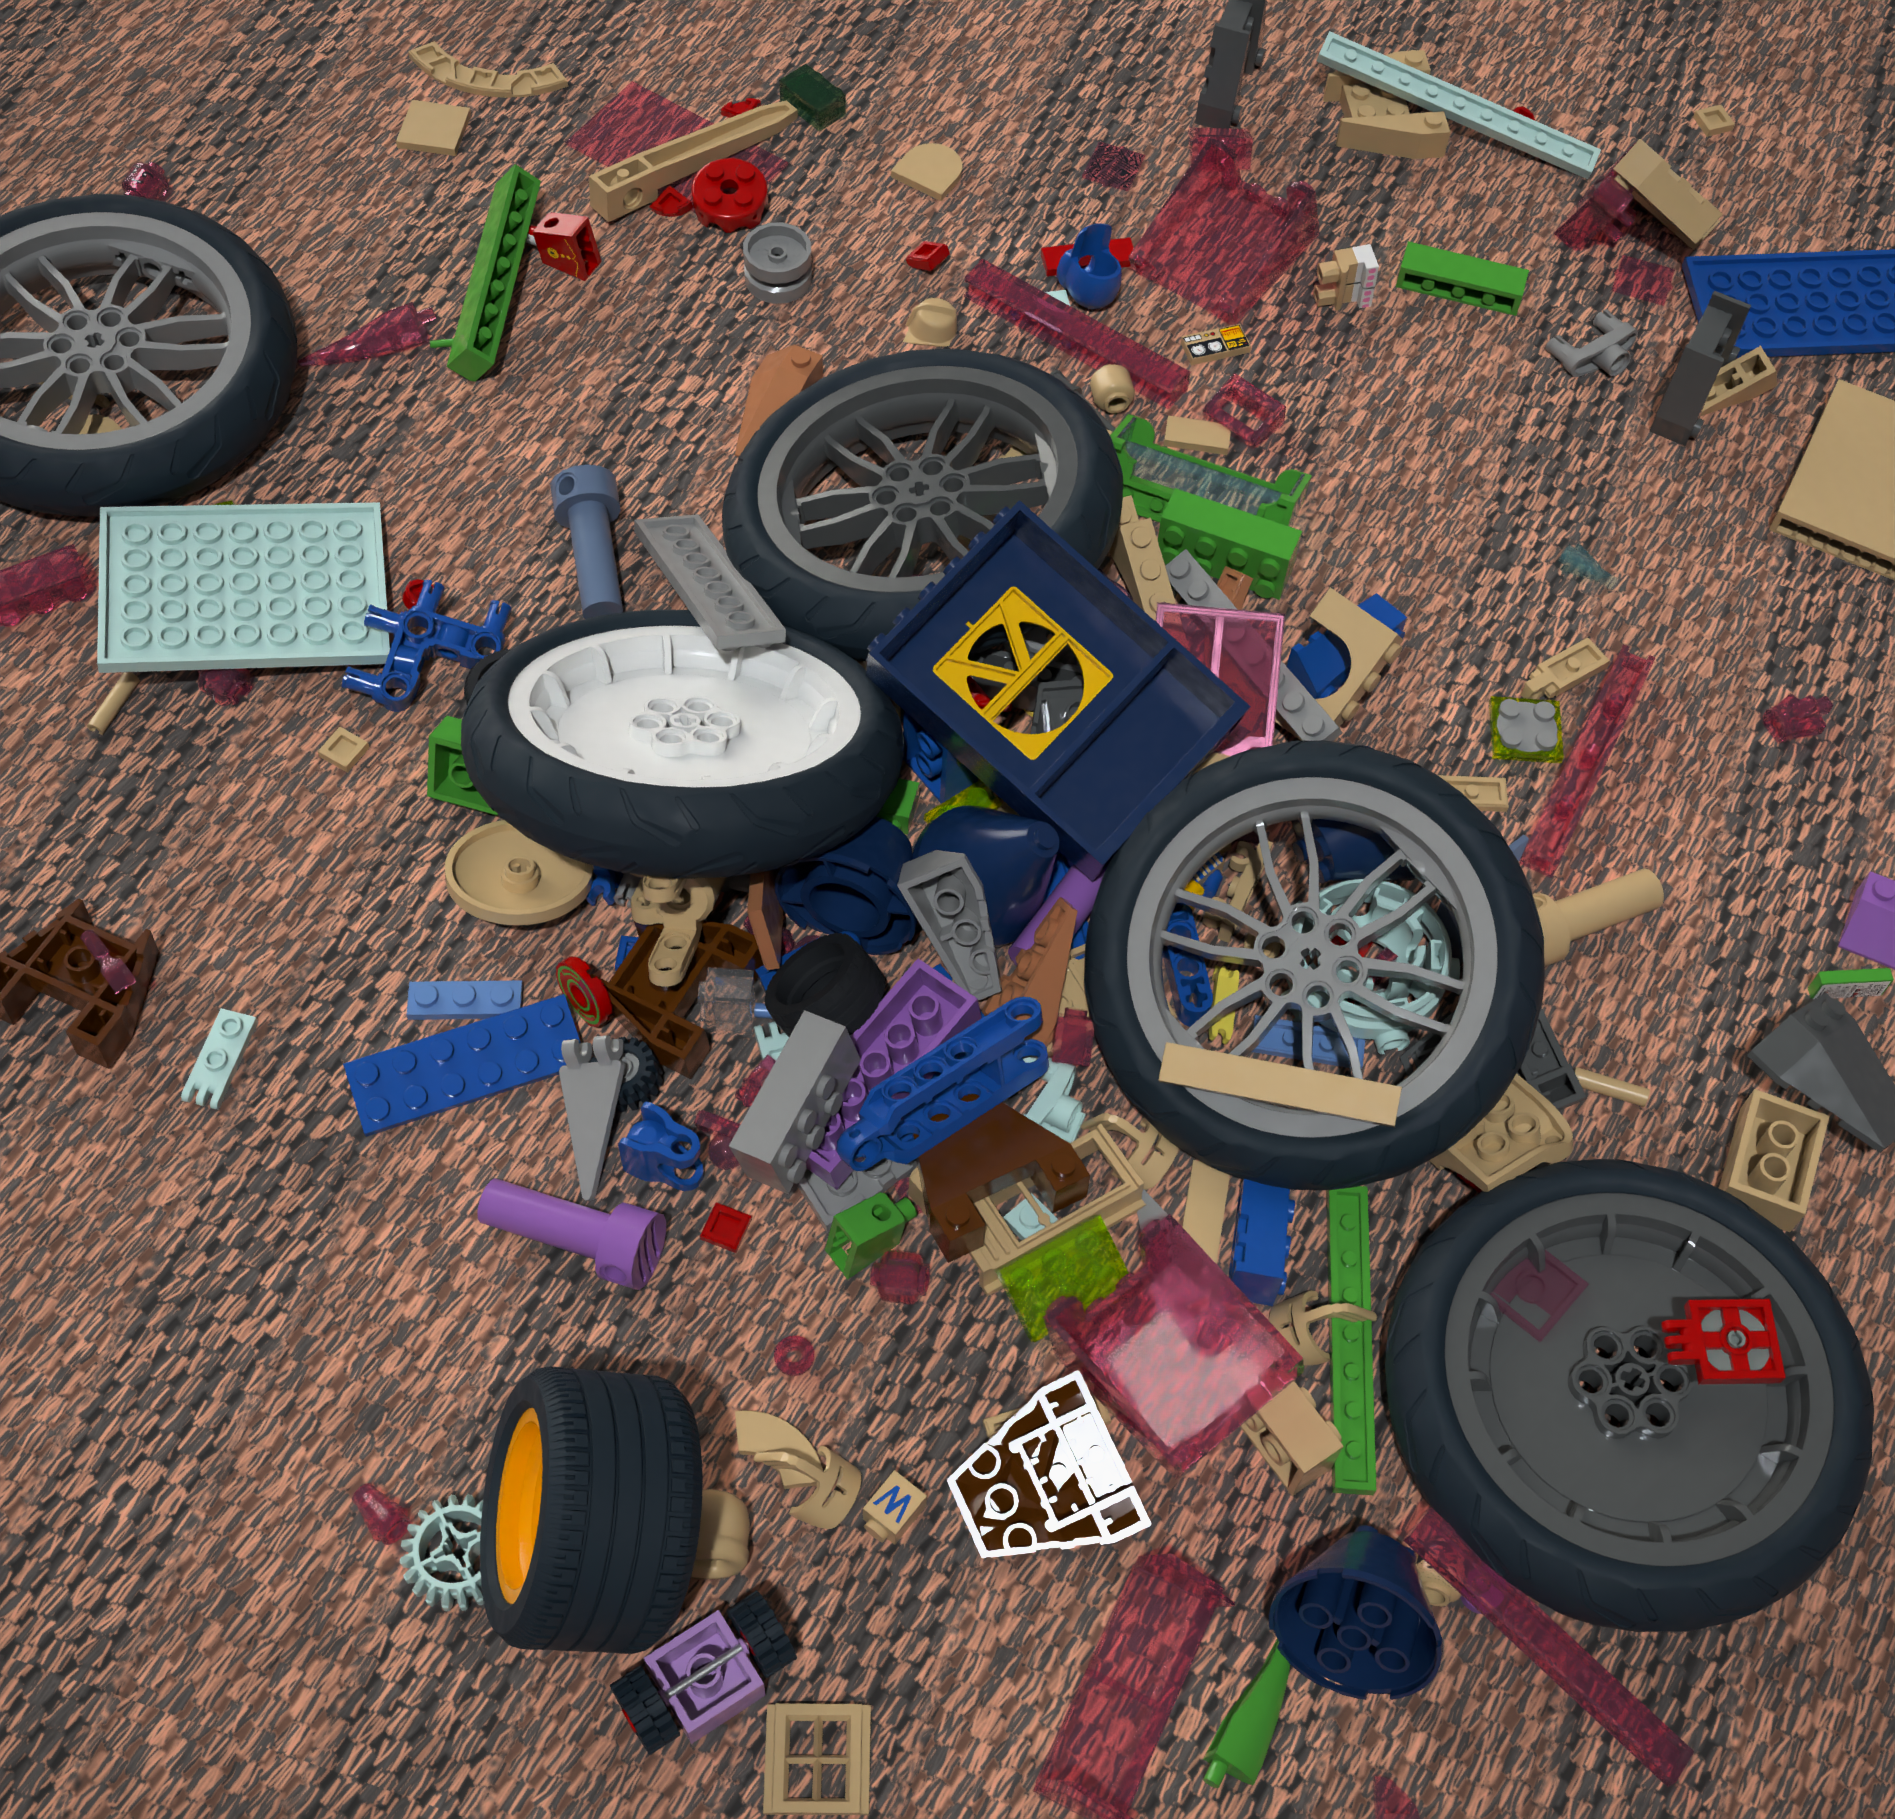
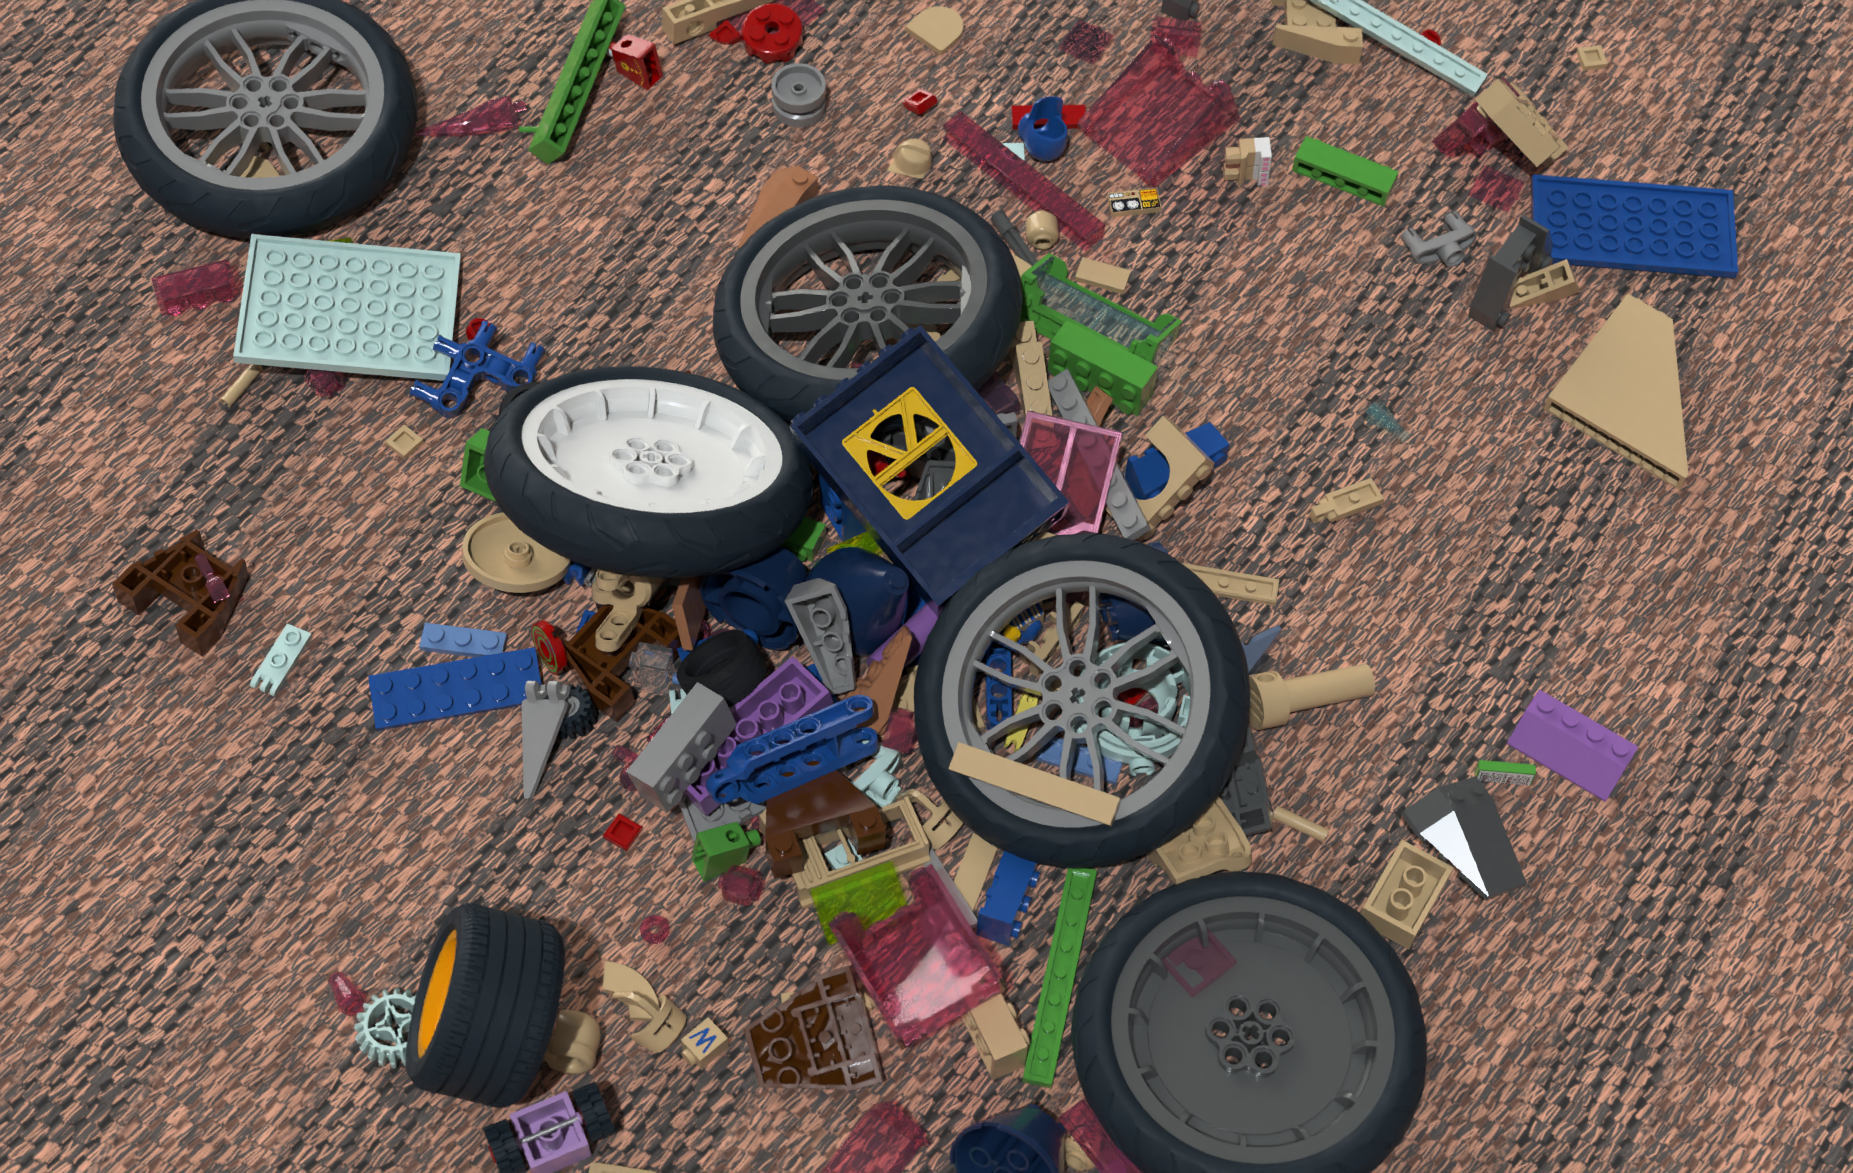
camera: 10 degrees right, 0 degrees up
(586, 503) = (615, 274): sand blue piece -> none
(621, 1243) = (545, 831): medium lavender piece -> none
(654, 1150) = (579, 770): blue piece -> none
(708, 583) = (692, 349): light grey plate -> none
(1251, 400) = (1152, 253): clear pink tile -> none
(1281, 1315) = (1022, 979): tan helmet -> none
(1526, 729) = (1305, 544): light grey piece -> none
(1586, 763) = (1345, 575): clear pink tile -> none
(1727, 1341) = (1320, 1013): red piece -> none
(1796, 717) = (1521, 562): clear pink rock -> none

